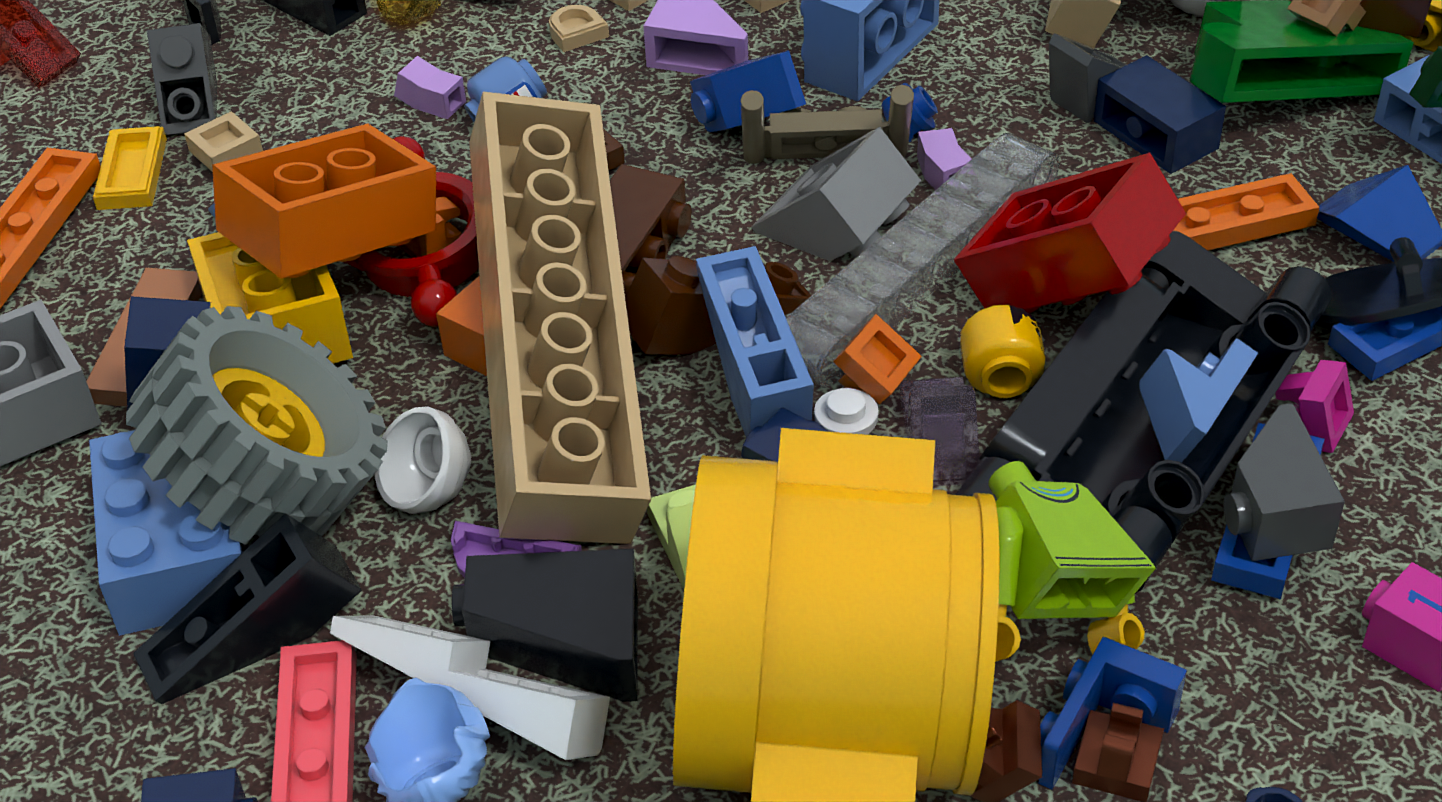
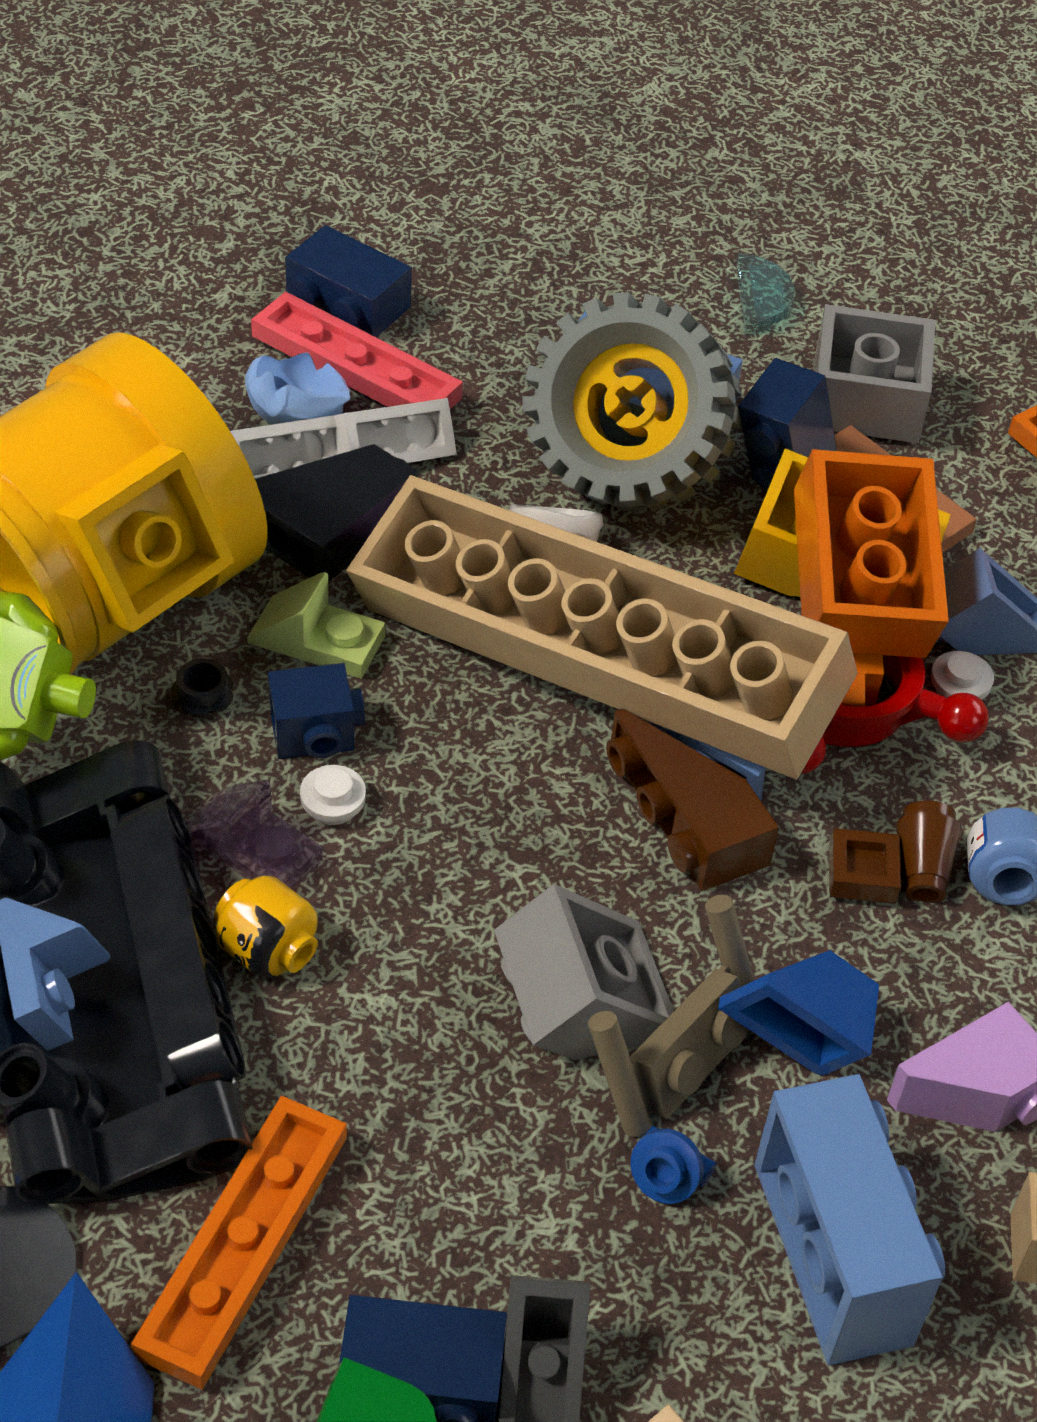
camera: 125 degrees right, 5 degrees up
(261, 602) = (498, 397): black slope -> none
(669, 307) = (547, 799): reddish brown slope -> none
(753, 339) = (431, 738): medium blue slope -> none
(876, 360) = (350, 830): orange tile -> none
(915, 253) = (453, 999): clear beam -> none
(940, 155) = (564, 1123): lavender piece -> none
(1073, 236) = (290, 1012): red brick -> none

